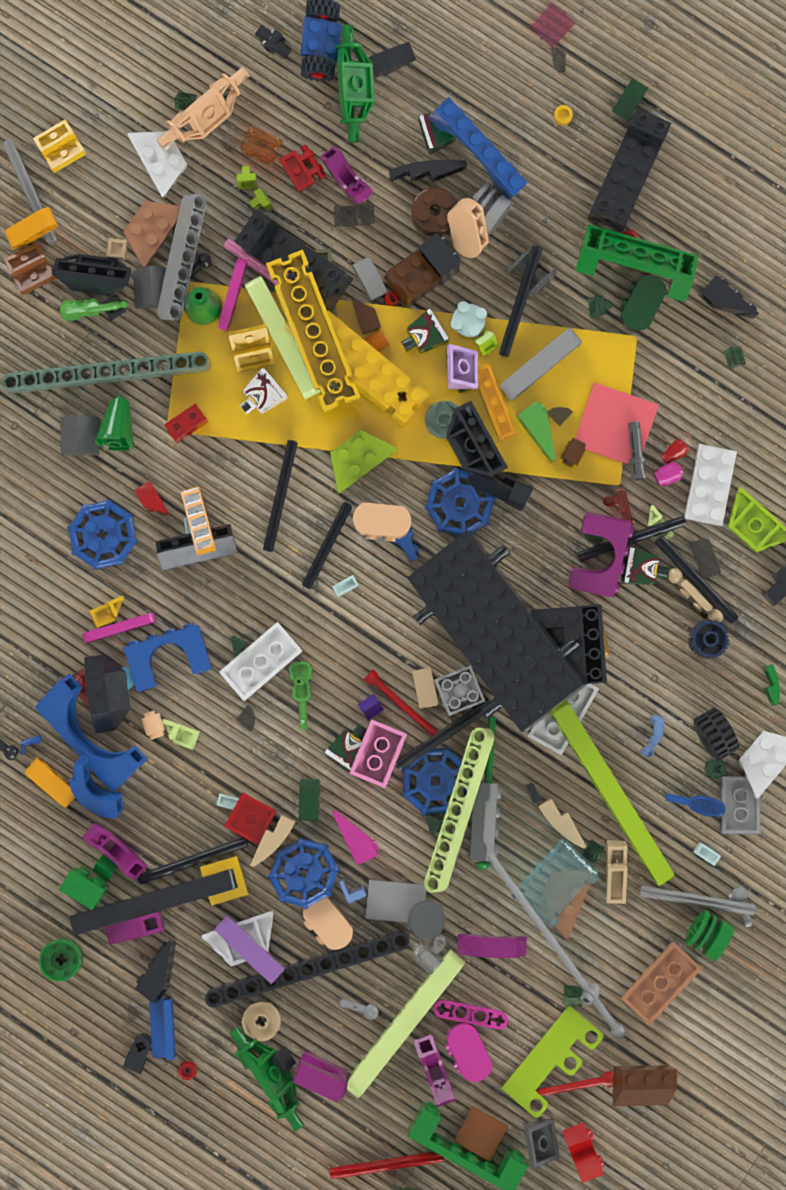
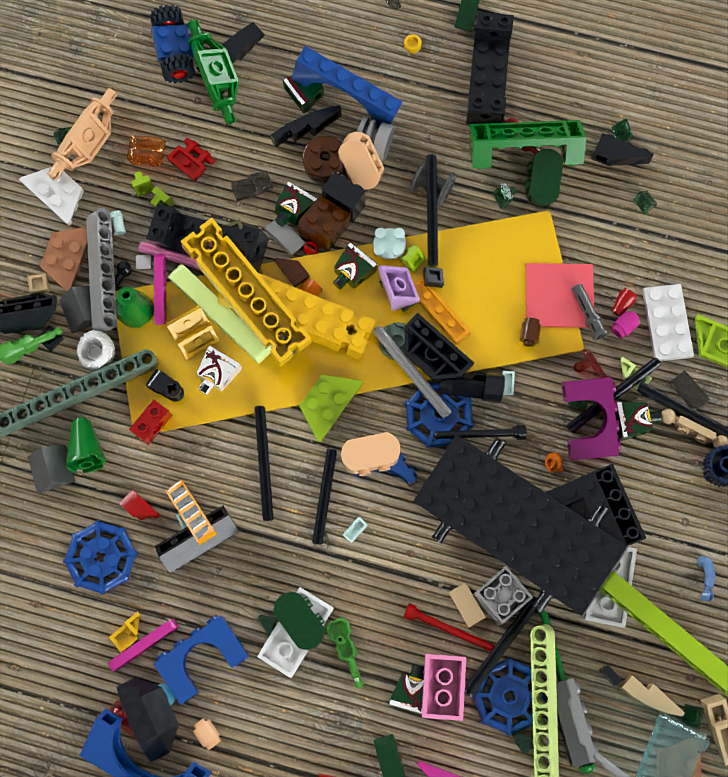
camera: 10 degrees left, 10 degrees down
(154, 336) = (95, 350): none -> white hair
(181, 734) = (238, 733): yellowish green slope -> none
(208, 390) = (163, 385): none -> black piece
(211, 211) = (117, 222): none -> light aqua pin
(224, 259) = (143, 261): none -> white sticker
(247, 718) = (300, 694): clear smoke tile -> none
(268, 652) = (299, 620): none -> dark green brick
(273, 41) = (130, 60): black axle -> none
(345, 176) = (231, 153): magenta arch -> none
(370, 707) = (419, 642): dark purple slope -> none
(387, 250) = (292, 204): none -> torso
(447, 454) = (411, 371): none -> light grey axle
(499, 368) = (433, 277): none -> black tile
(527, 544) = (518, 432): none -> black piece
(537, 425) = (487, 317): bright green slope -> none
(538, 489) = (509, 382): none -> light aqua piece
(540, 364) = (470, 262): light grey beam -> none
(551, 584) = (554, 462): none -> orange plate
(559, 414) = (504, 302): clear smoke tile -> none
(739, 278) = (622, 130): none -> clear green slope

